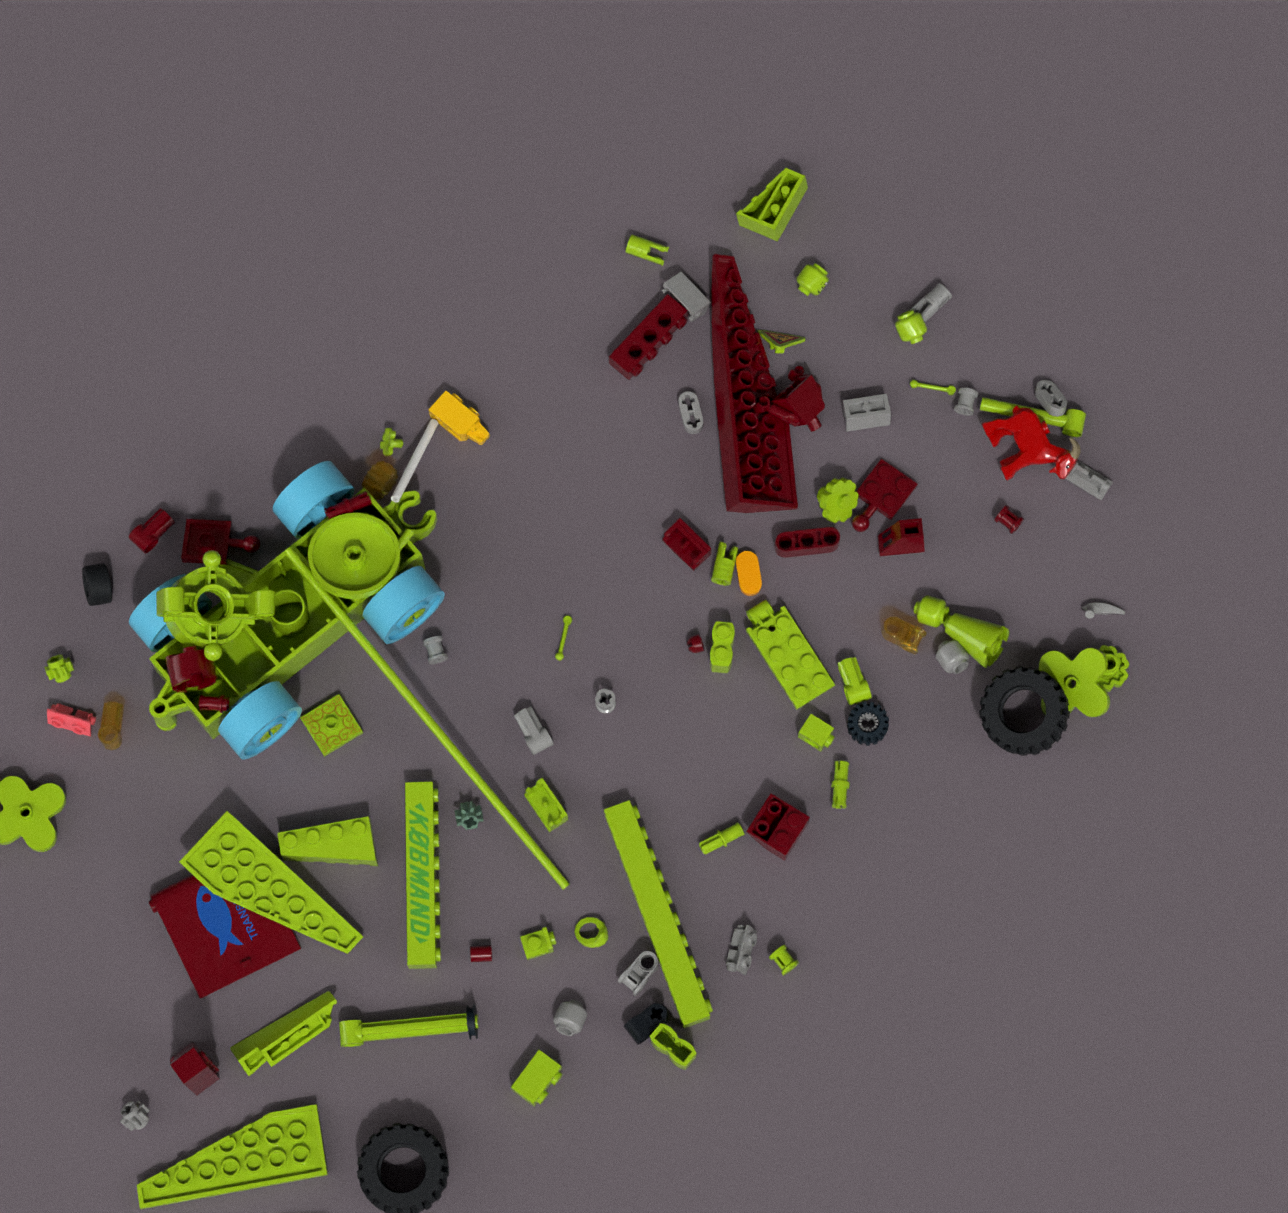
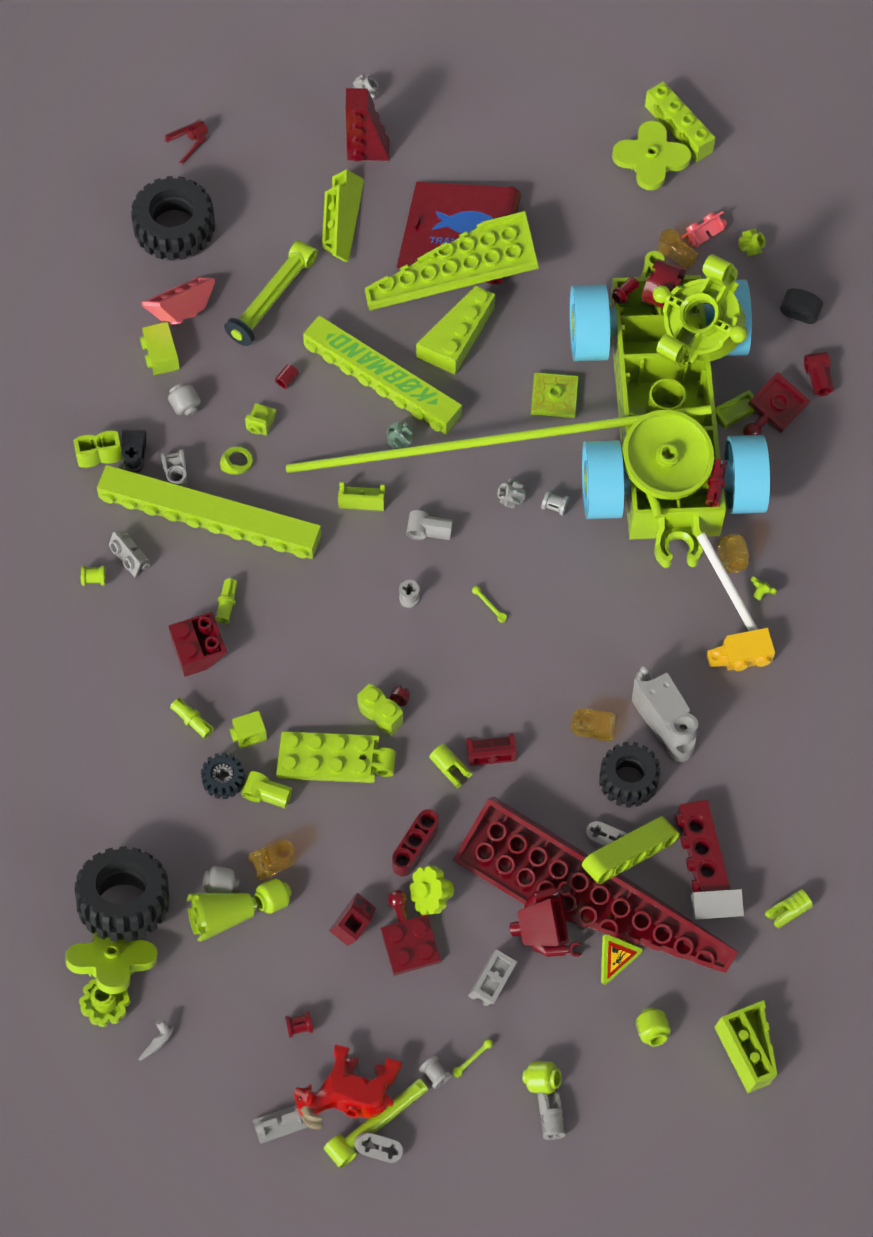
camera: 125 degrees right, 10 degrees down
(265, 1153) = (269, 145): lime wing -> none
(454, 687) = (511, 493): none -> light grey gear
(482, 1097) = (181, 300): none -> coral wedge
(561, 432) = (665, 713): none -> light grey piece
(606, 481) = (596, 724): none -> clear yellow piece
(630, 410) = (633, 757): none -> black tyre
(695, 378) = (630, 849): none -> lime beam
(748, 573) = (427, 780): light orange tile -> none

